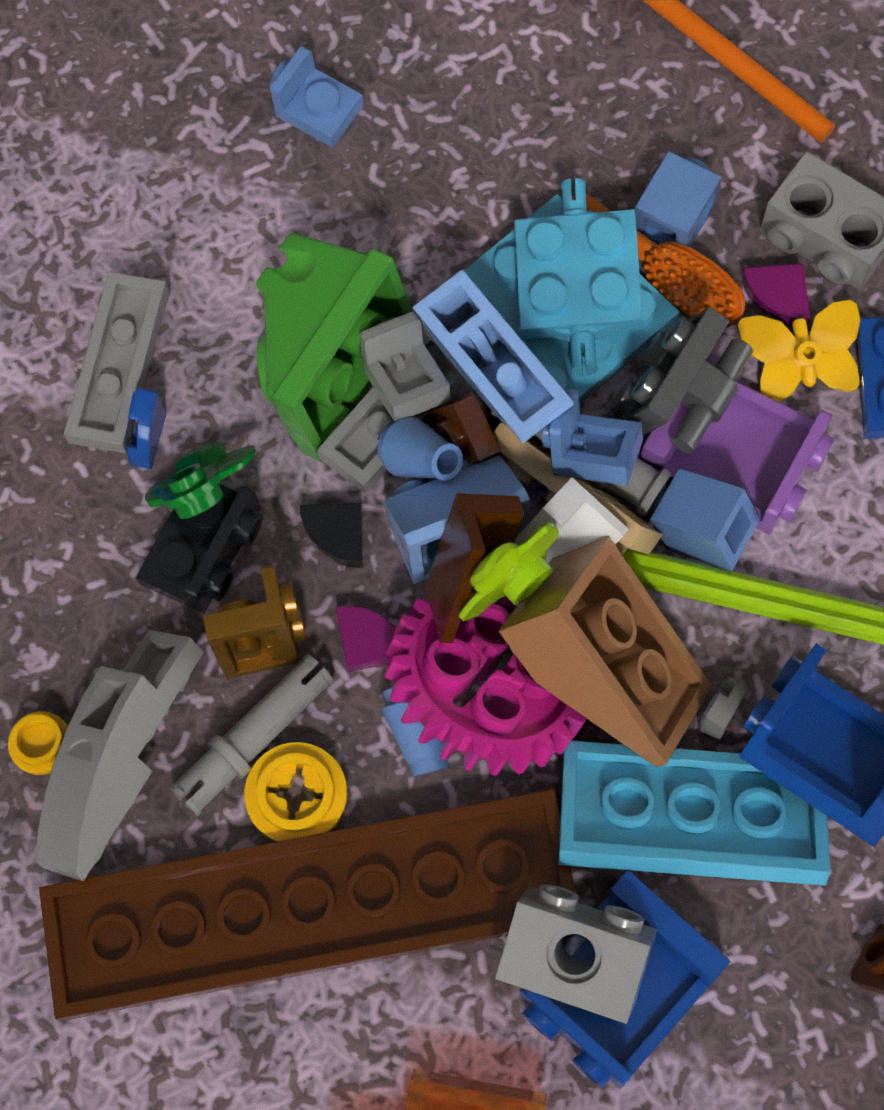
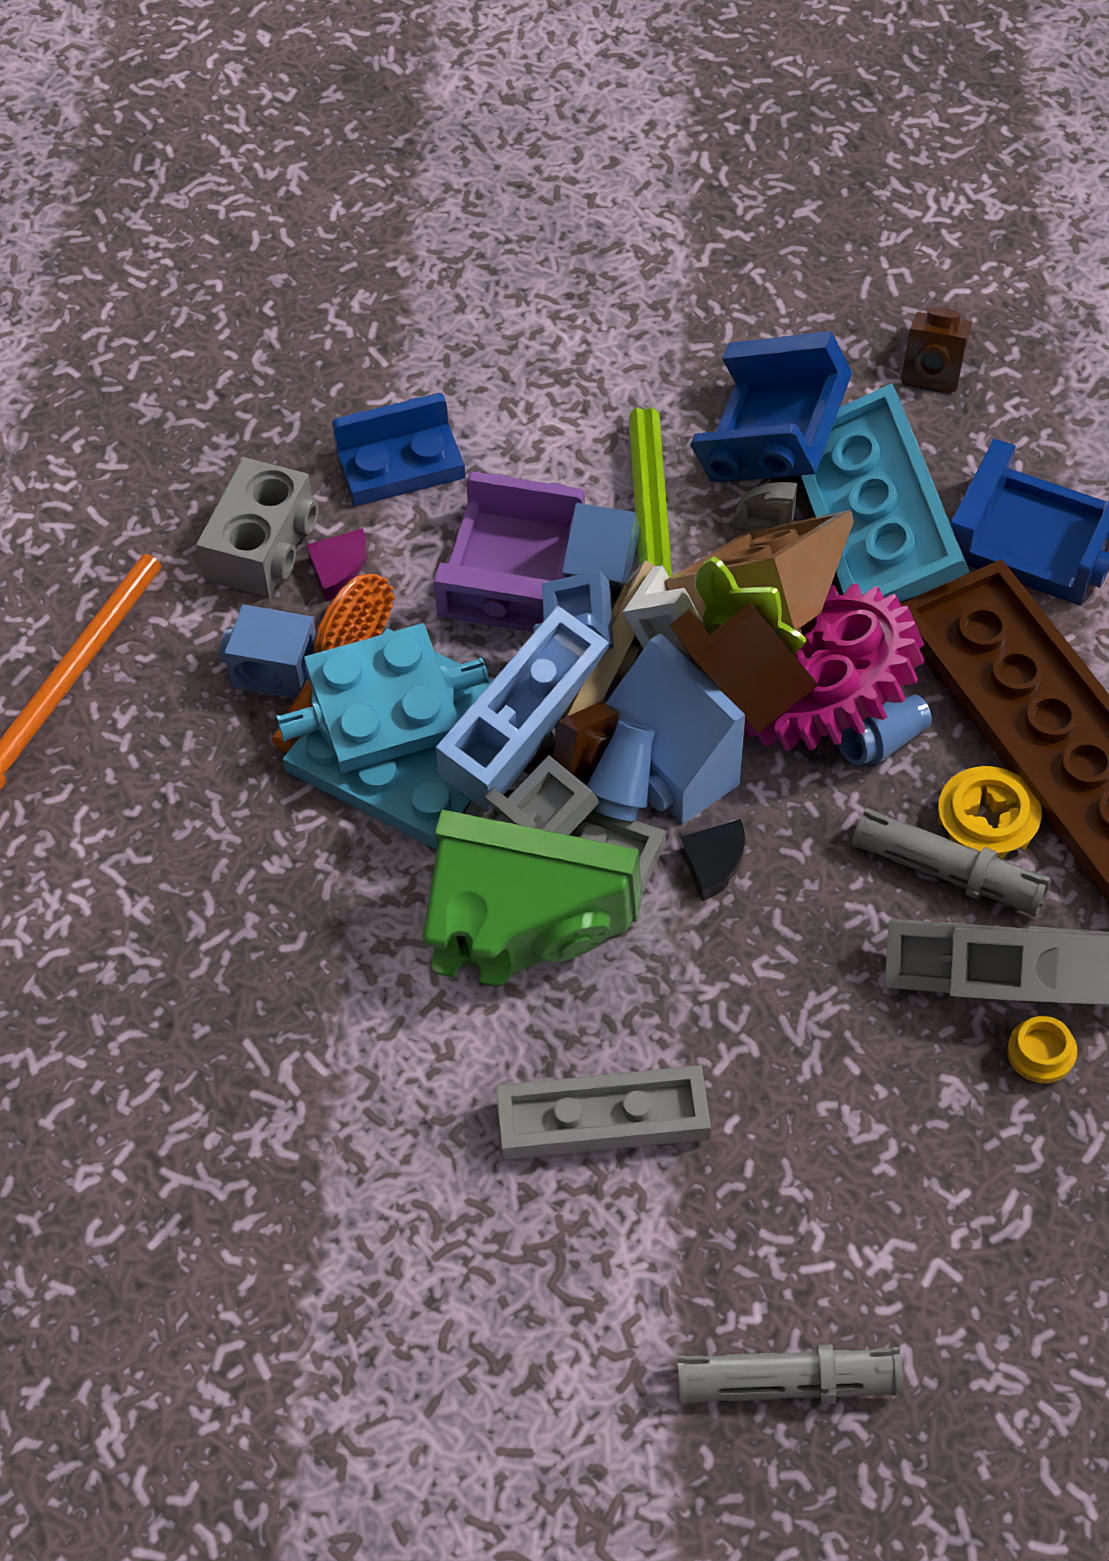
camera: 110 degrees left, 15 degrees down
(150, 414) = (670, 1050): blue tile -> none
(196, 479) = (709, 981): green plate -> none
(196, 553) = (775, 965): black bracket -> none
(259, 635) = (861, 850): pearl gold bracket -> none
(313, 99) = (221, 1018): medium blue bracket -> none
(364, 637) = (814, 799): magenta tile -> none
(540, 964) = (1042, 533): light grey brick -> none
(680, 374) = (476, 592): dark grey plate -> none
(805, 356) = (400, 520): yellow piece -> none

